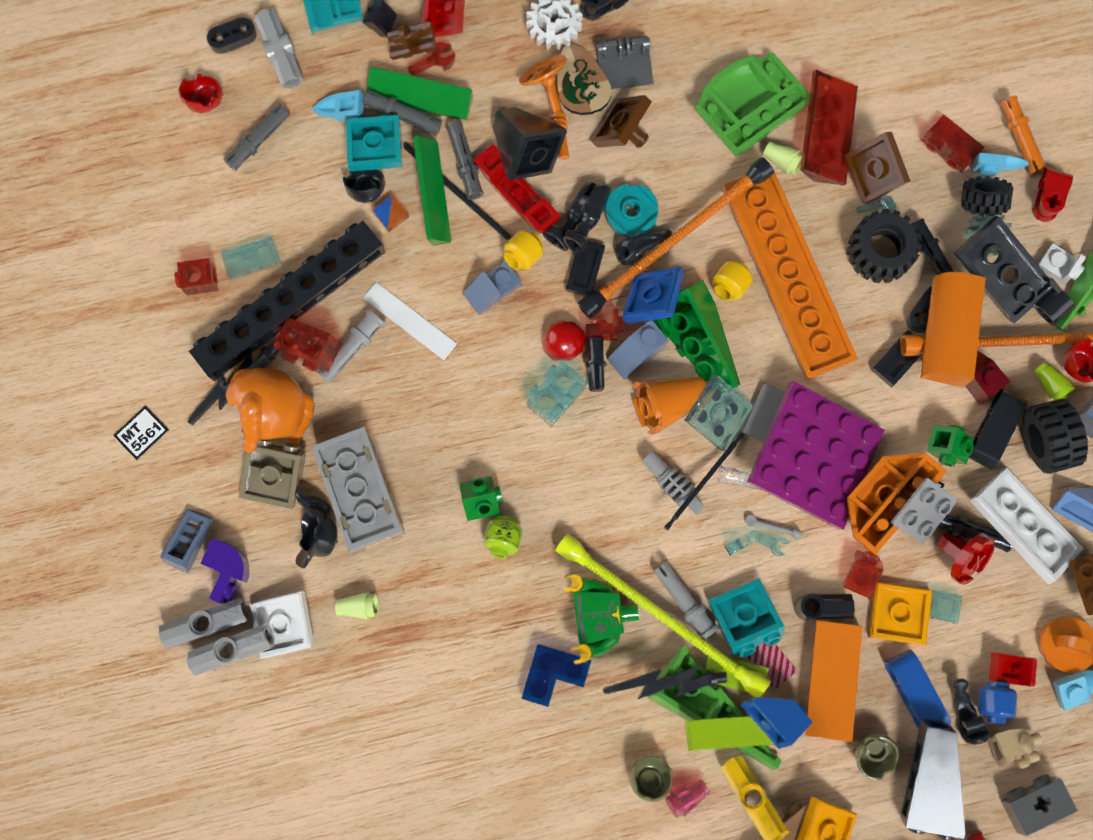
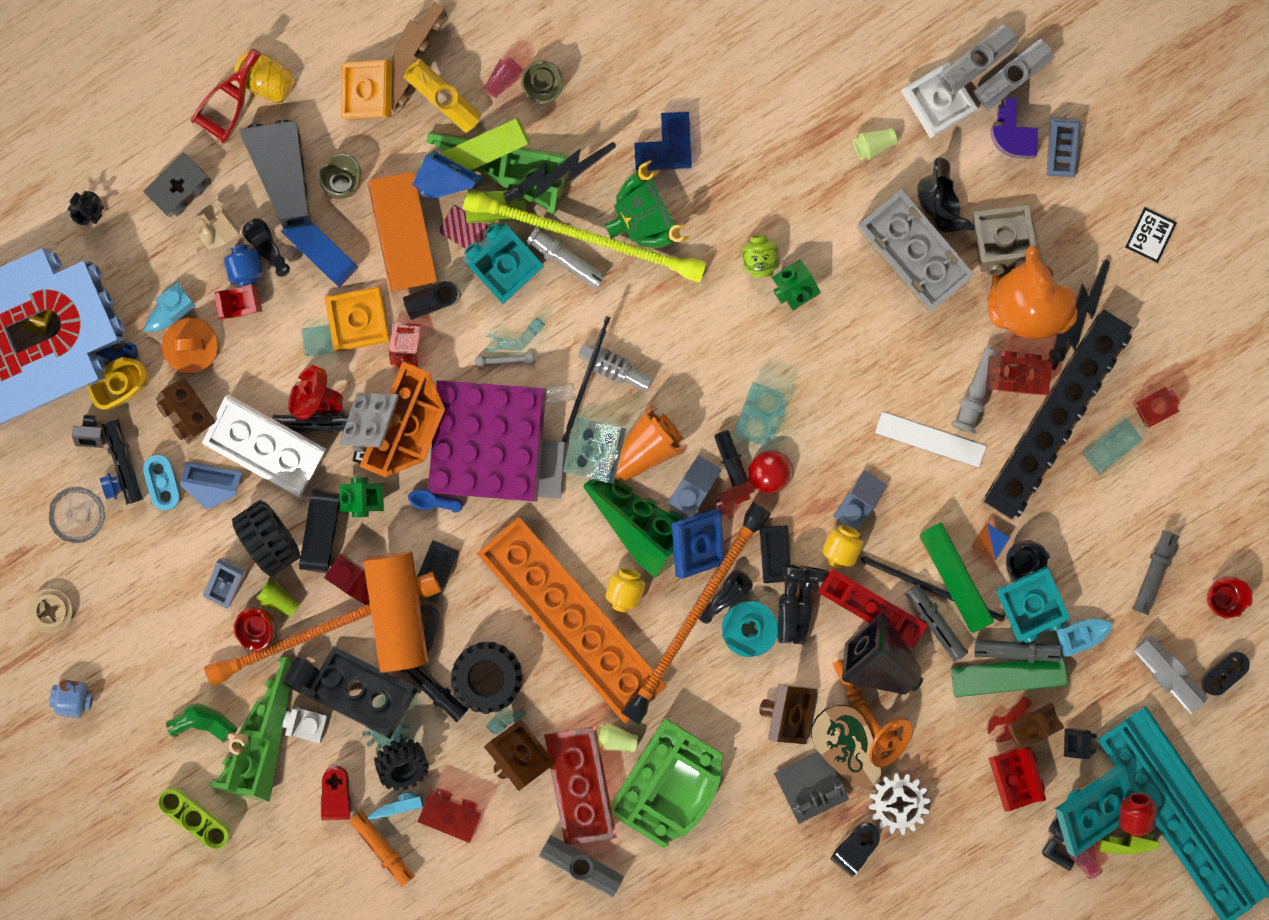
camera: 160 degrees right, 10 degrees up
(839, 50) = (597, 876): none -> dark grey piece
(890, 424) = (426, 500): none -> blue piece

